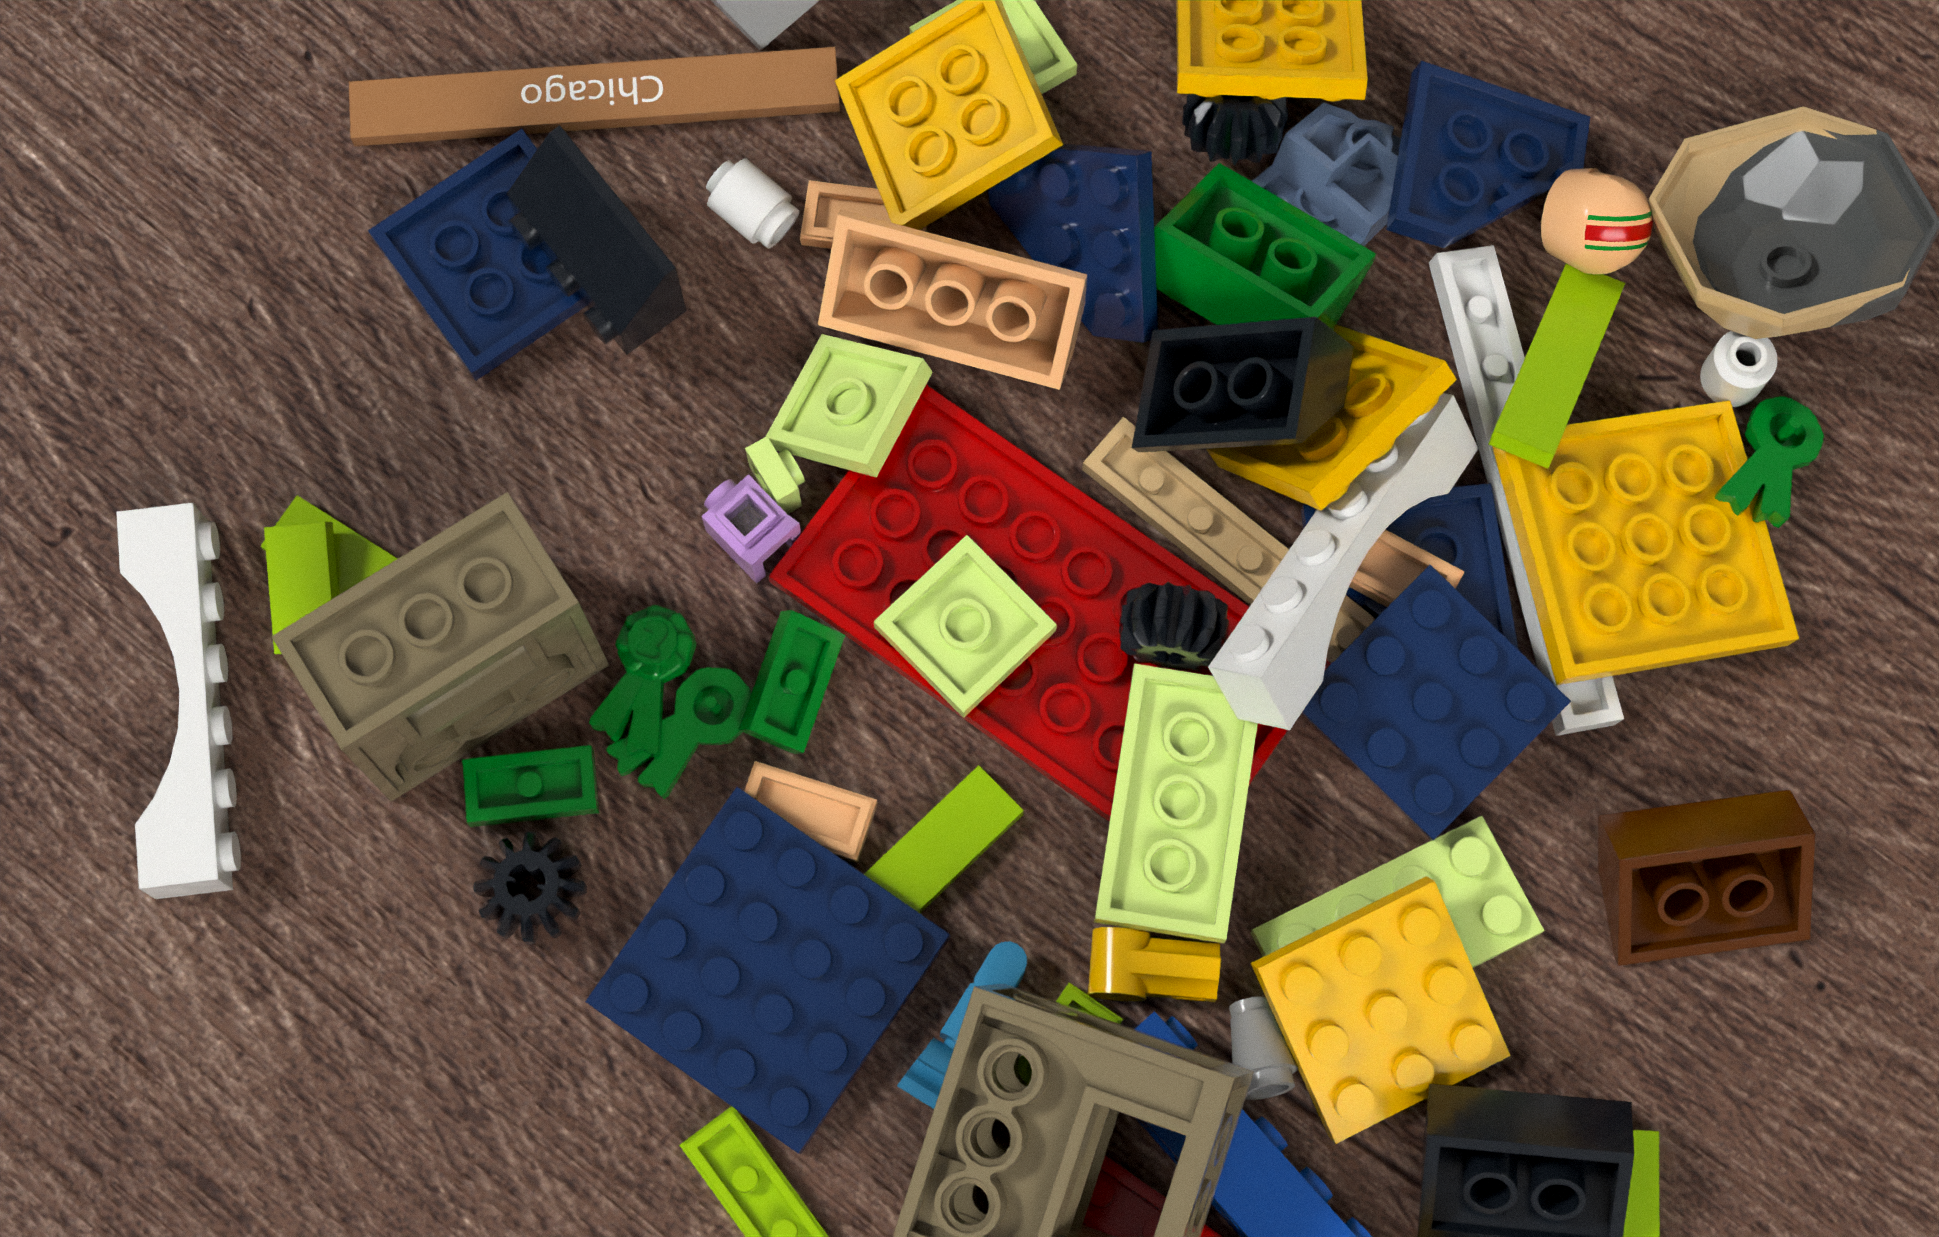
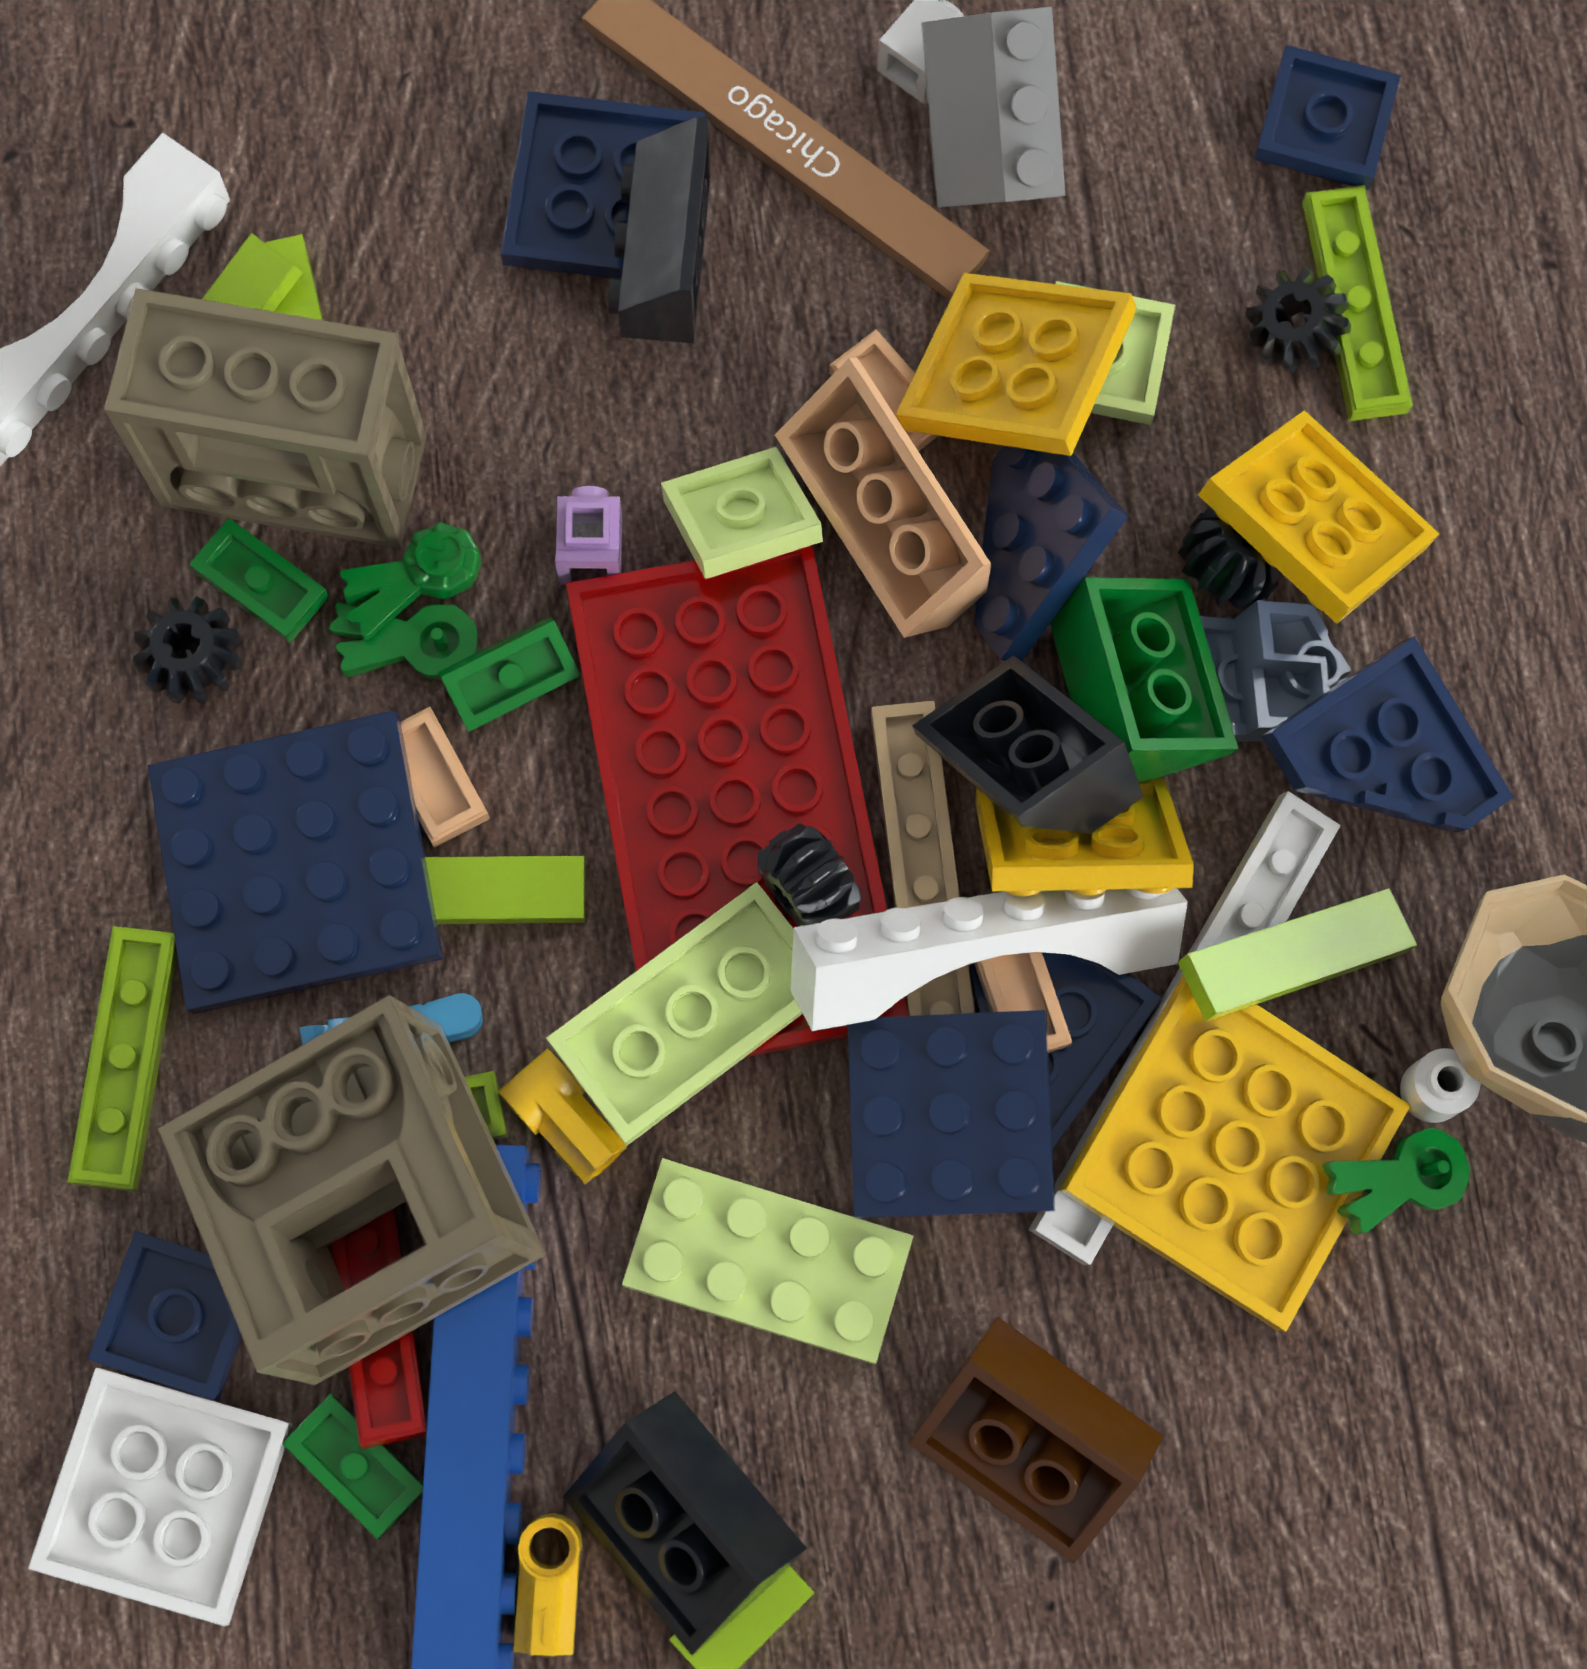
camera: 40 degrees right, 0 degrees up
(751, 202) = (818, 308): white brick -> none
(776, 473) = (642, 518): yellowish green plate -> none
(965, 626) = (664, 744): yellowish green plate -> none
(1261, 1048) = (580, 1249): light grey cone -> none
(1380, 1009) = (693, 1302): yellow plate -> none
(1595, 221) = (1432, 873): light nougat helmet -> none

